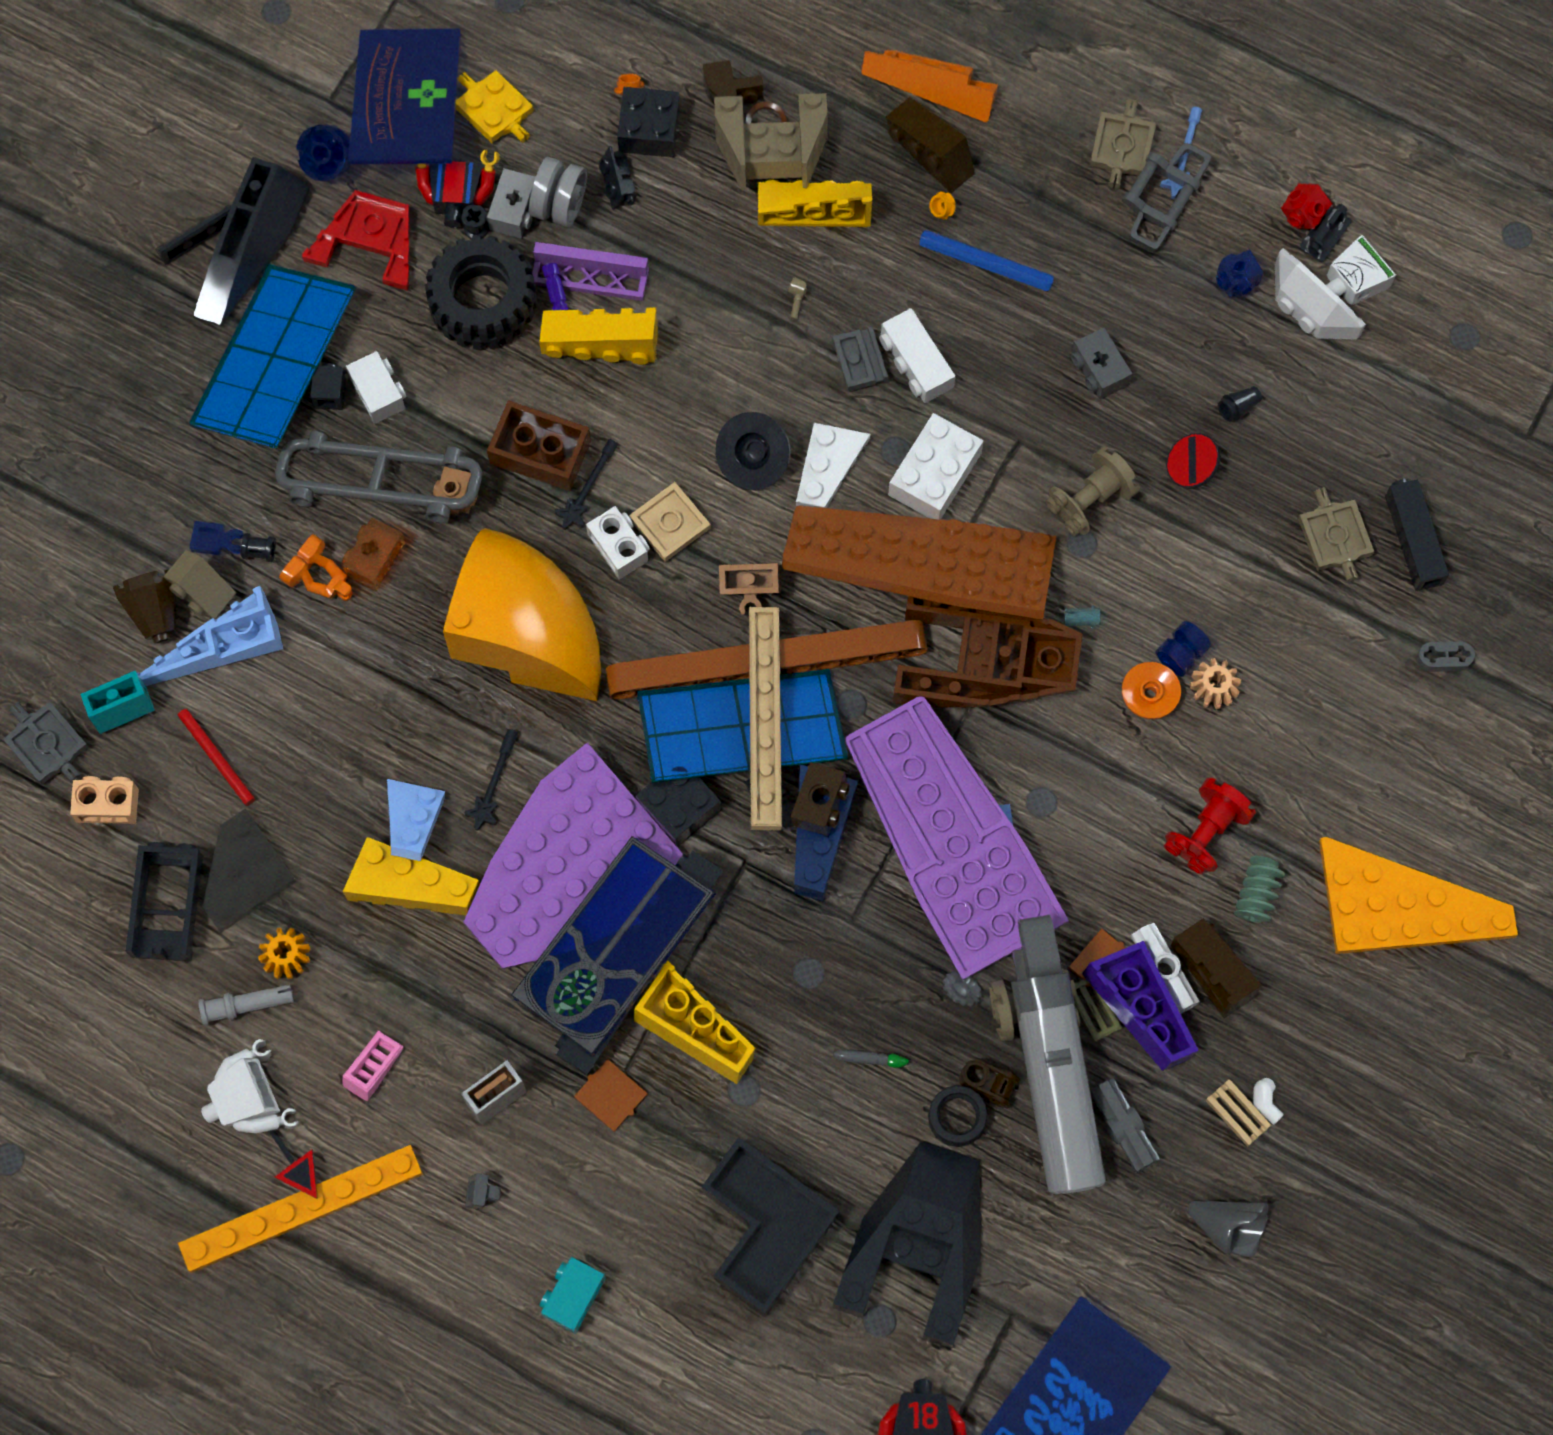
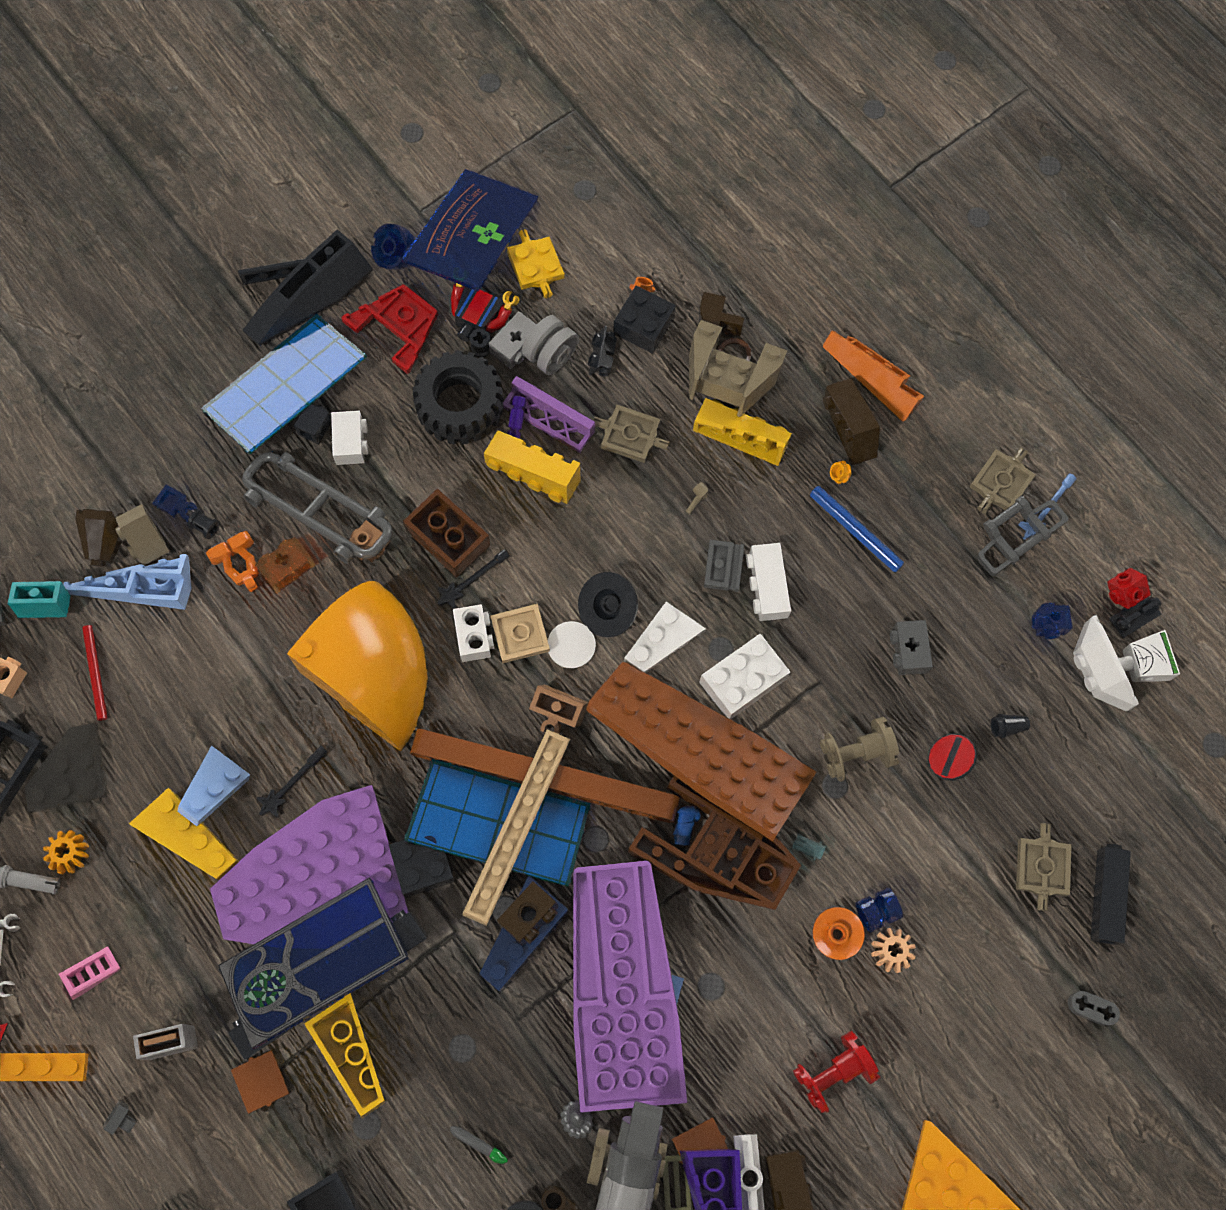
camera: 20 degrees right, 0 degrees up
(691, 256) = (630, 433): none -> dark tan plate
(731, 511) = (571, 644): none -> white piece
(941, 648) = (684, 827): none -> blue arm
(1258, 890) = (855, 1145): sand green piece -> none

